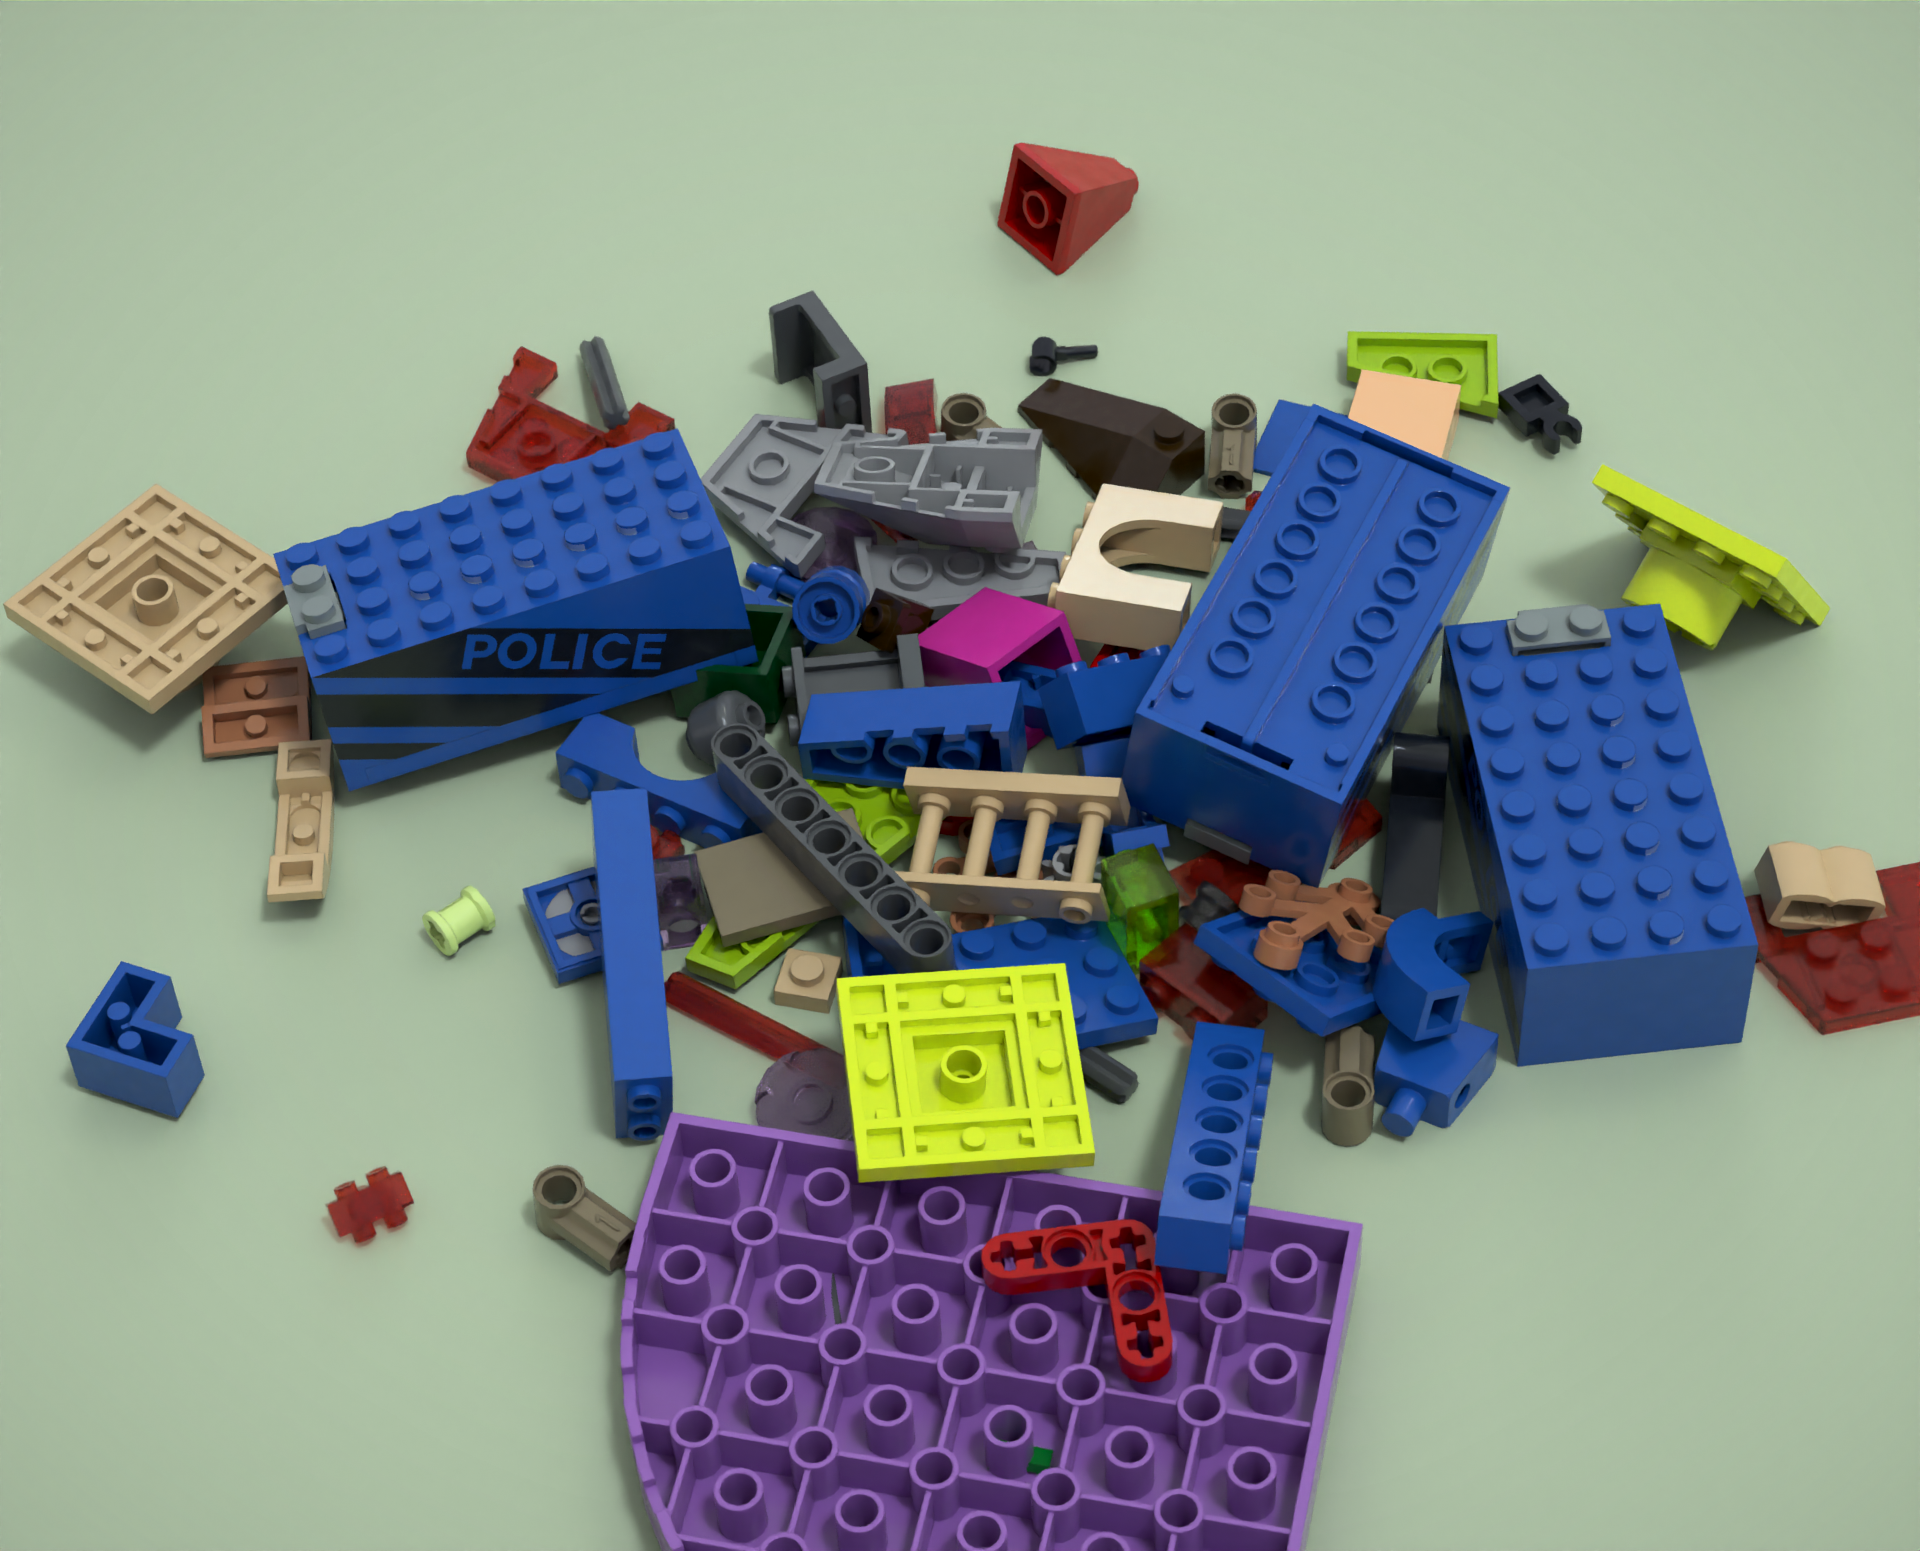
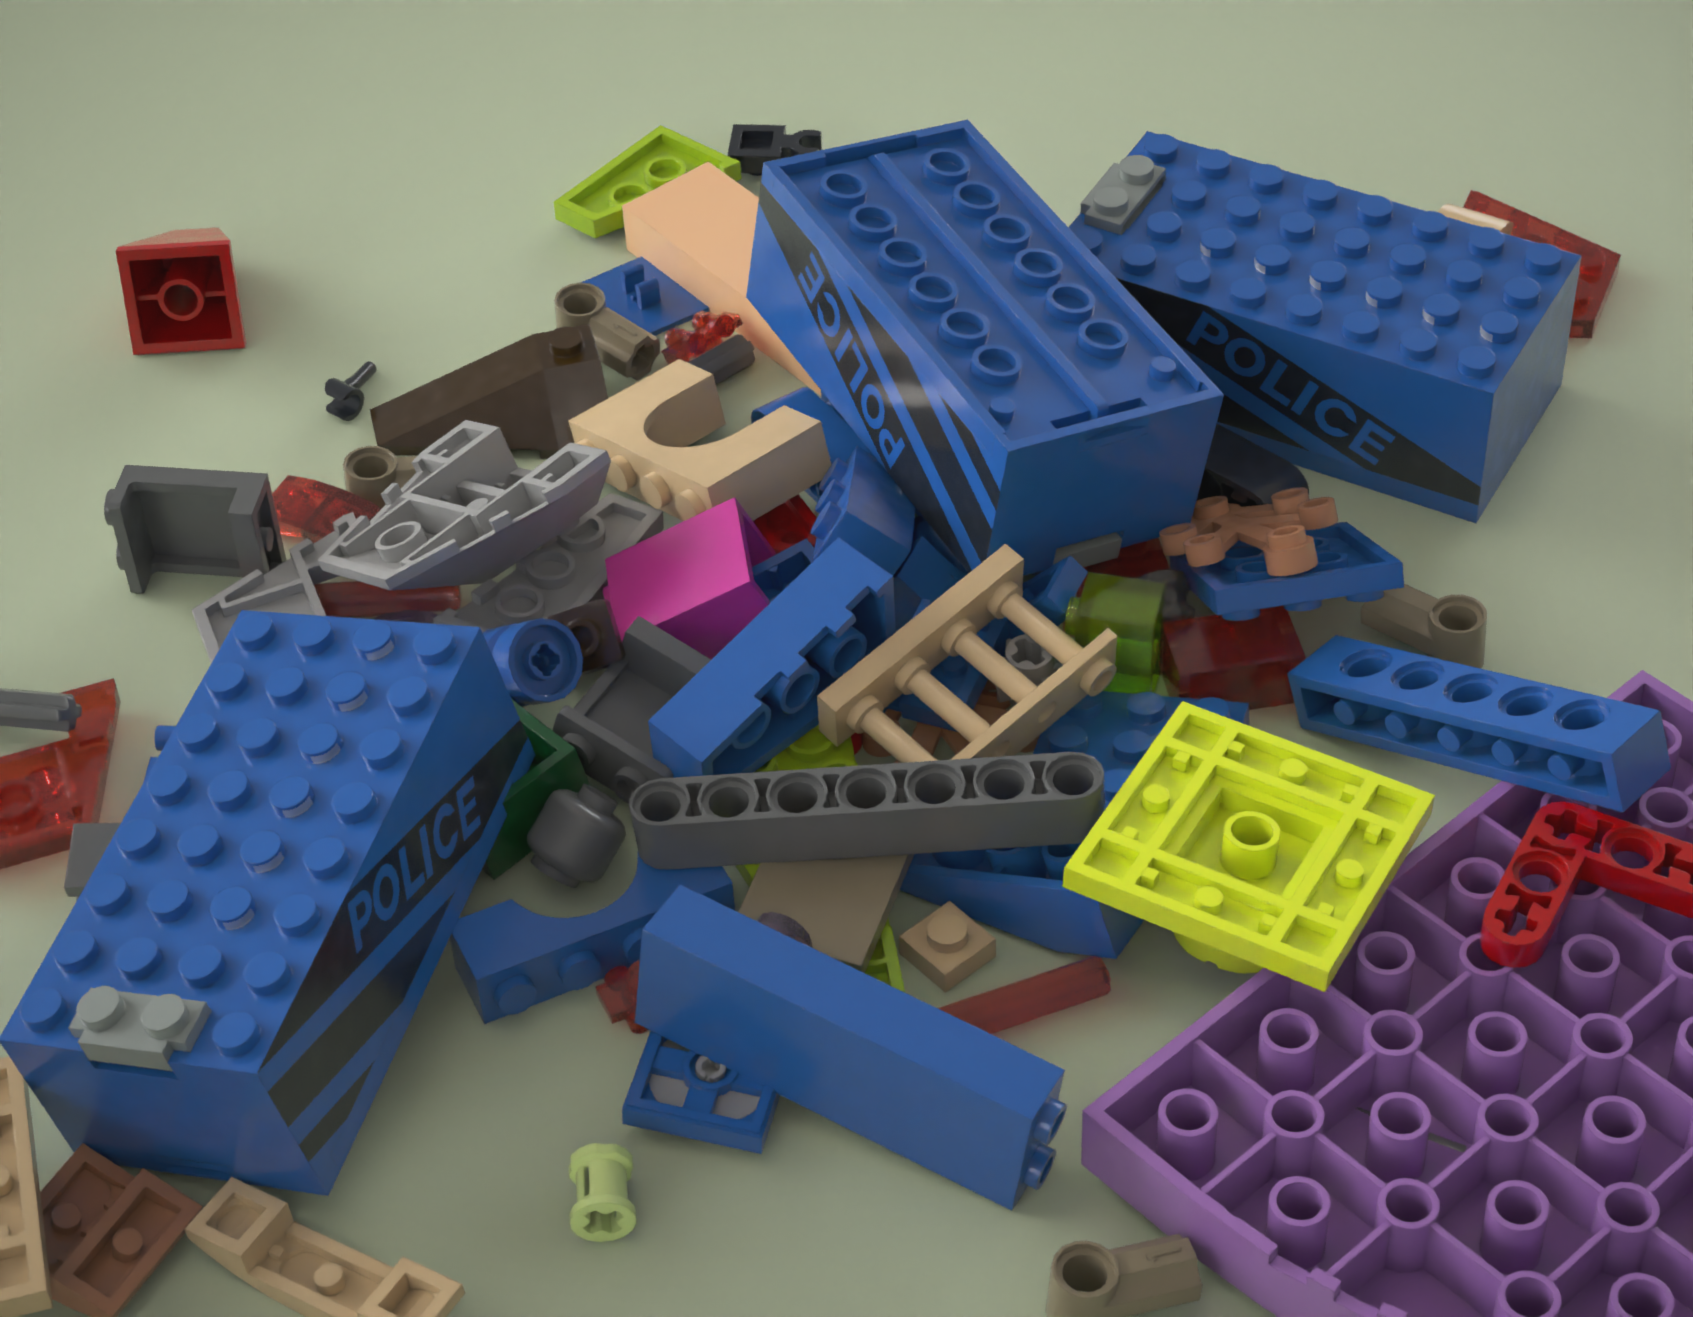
camera: 55 degrees left, 5 degrees down
(806, 1095) = (1119, 1011): clear purple tile -> none
(1420, 970) = (1382, 499): blue arch -> none
(1431, 1076) = (1457, 553): blue torso -> none
(1700, 566) = (1081, 108): neon yellow piece -> none

